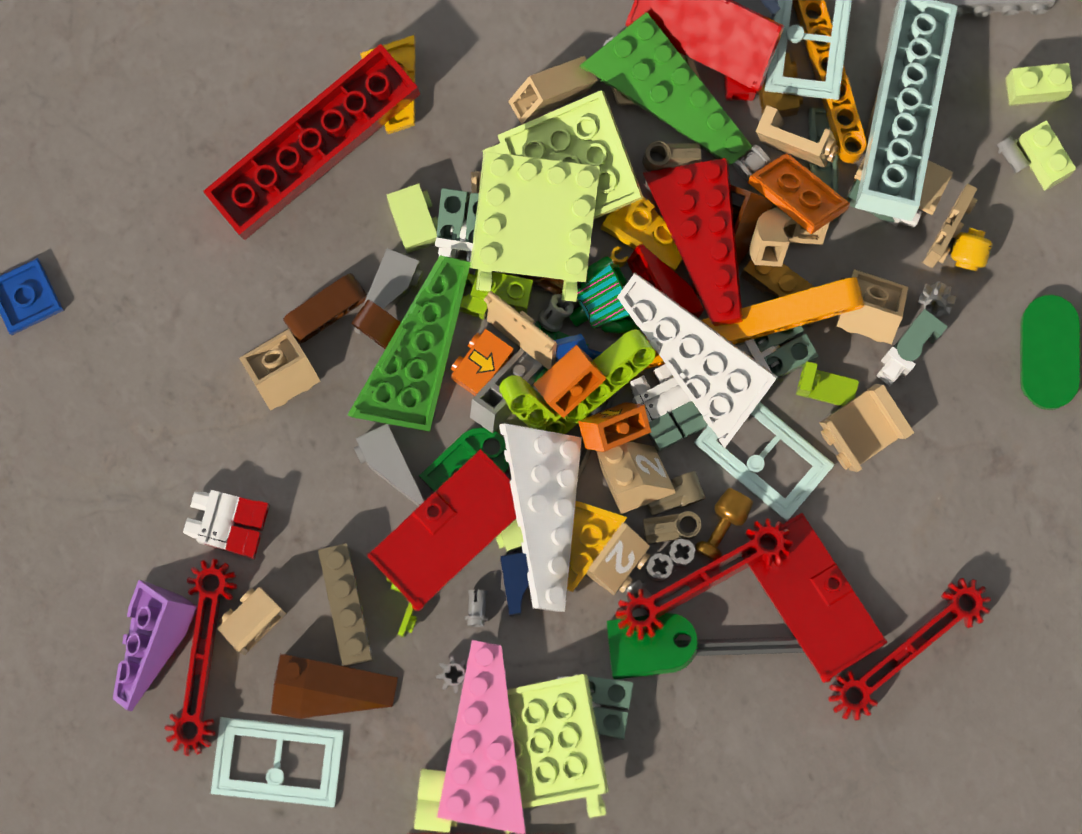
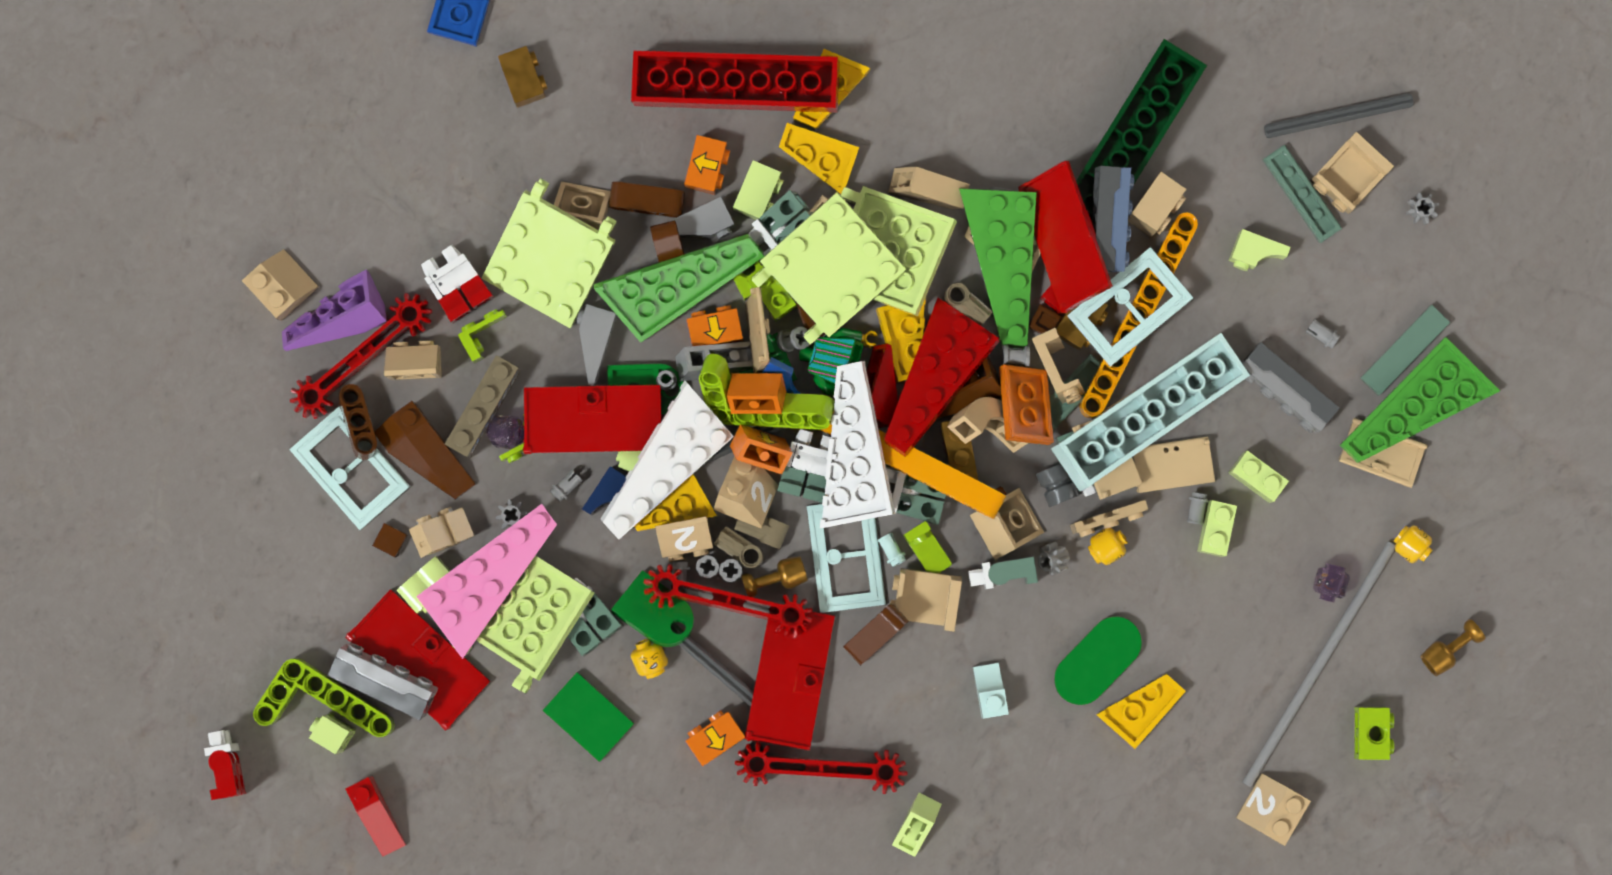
camera: 45 degrees right, 5 degrees up
(75, 659) = (280, 284): none -> tan slope
(125, 298) = (522, 76): none -> pearl gold brick
(241, 703) = (357, 409): none -> reddish brown beam
(287, 427) = (549, 256): none -> yellowish green plate
(291, 561) = (472, 345): none -> lime bracket
(350, 234) = (706, 165): none -> orange brick
(368, 792) = (389, 540): none -> reddish brown tile
(385, 608) = (506, 431): none -> clear purple head
(407, 743) = (441, 532): none -> tan piece
(437, 142) = (821, 154): none -> yellow wing
(486, 447) = (669, 386): none -> light grey pin
(675, 787) = (588, 716): none -> green tile
(681, 690) = (649, 659): none -> yellow head
(747, 114) = (1044, 320): none -> reddish brown tile
(798, 414) = (892, 550): none -> light aqua pin
(798, 705) = (714, 738): none -> orange brick
(852, 493) = (875, 633): none -> reddish brown beam
(884, 236) = (1057, 484): none -> dark grey wheel
(961, 142) = (1169, 467): none -> tan door
(988, 456) = (990, 691): none -> light aqua arch
(1033, 622) = (917, 824): none -> yellowish green arch

